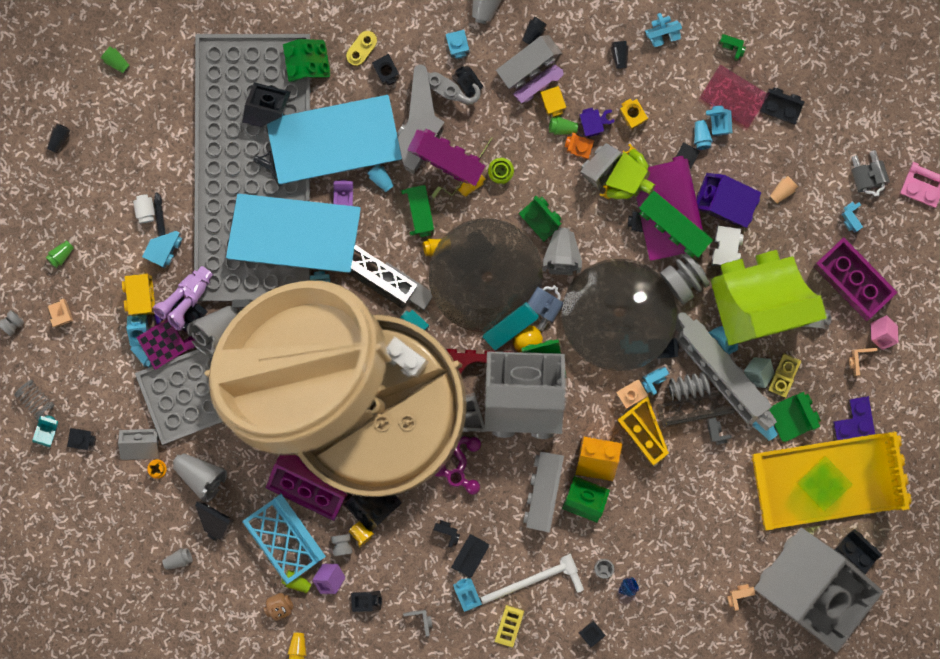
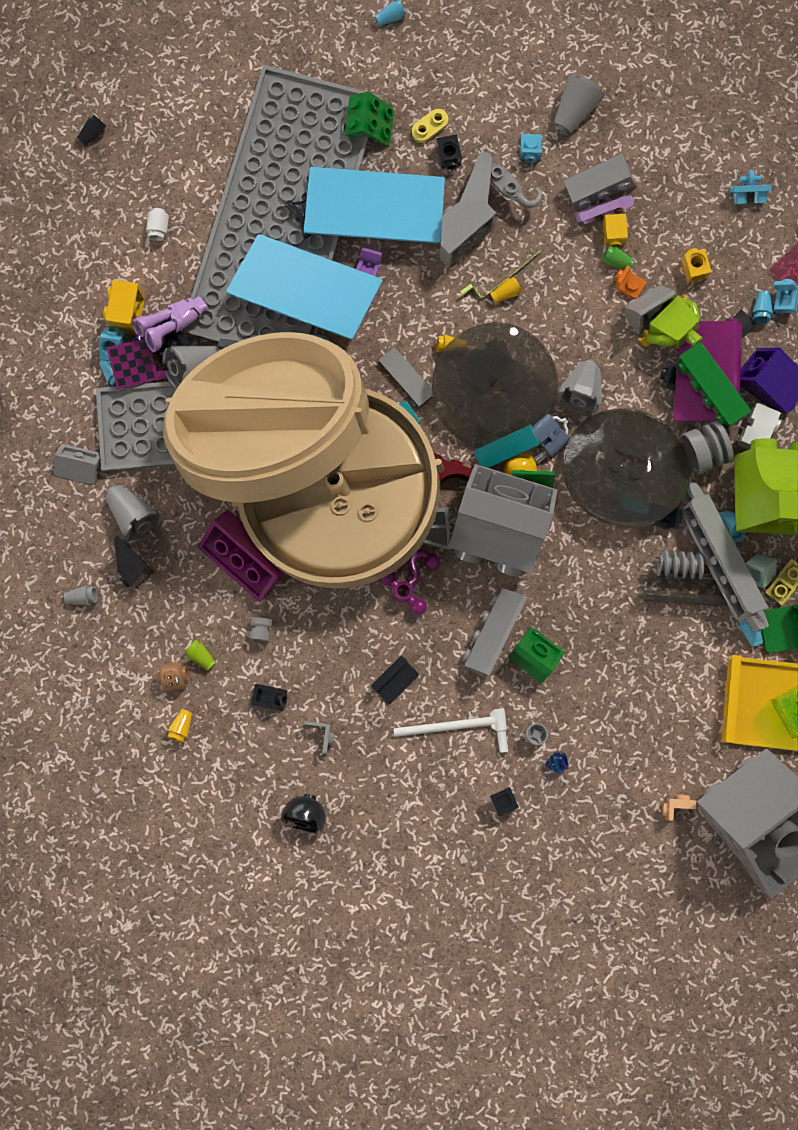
camera: 15 degrees right, 5 degrees down
(59, 254) = (55, 247): bright green cone -> none
(60, 313) = (38, 307): light nougat panel -> none
(81, 439) = (19, 442): black bracket -> none
(115, 59) = (172, 67): bright green cone -> none
(159, 214) = (174, 221): black piece -> none
(161, 248) = (163, 268): medium azure slope -> none
(162, 467) = (94, 492): light orange bush -> none
(264, 104) = (311, 149): black slope -> none
(297, 529) = (218, 604): medium azure fence -> none
(329, 578) = (236, 662): medium lavender panel -> none
(361, 533) = (284, 623): yellow bush -> none
(372, 509) = (304, 599): black bracket -> none
(377, 283) = (376, 365): fence -> none
(380, 177) = (412, 259): medium azure cone -> none
(406, 357) = (387, 440): white brick -> none
(420, 211) = (444, 303): green brick -> none
(444, 527) = (376, 642): black bracket -> none
(445, 157) = (488, 248): magenta wedge -> none
(465, 78) = (528, 182): black bracket -> none
(467, 594) = (380, 720): medium azure bracket -> none
(495, 168) = (539, 279): lime cone -> none
(513, 610) = (420, 749): light yellow slope -> none
(533, 30) = (615, 149): black cone -> none
(540, 218) = (570, 344): green bracket -> none
(592, 122) = (650, 262): dark purple brick -> none
(598, 458) = (563, 612): light orange slope -> none
(620, 53) = (697, 201): black cone -> none
(632, 393) = (618, 553): light nougat bracket -> none
(643, 429) = (620, 597): yellow wedge -> none
(657, 377) = (644, 544): medium azure bracket -> none
(714, 429) = (696, 617): dark grey bracket -> none

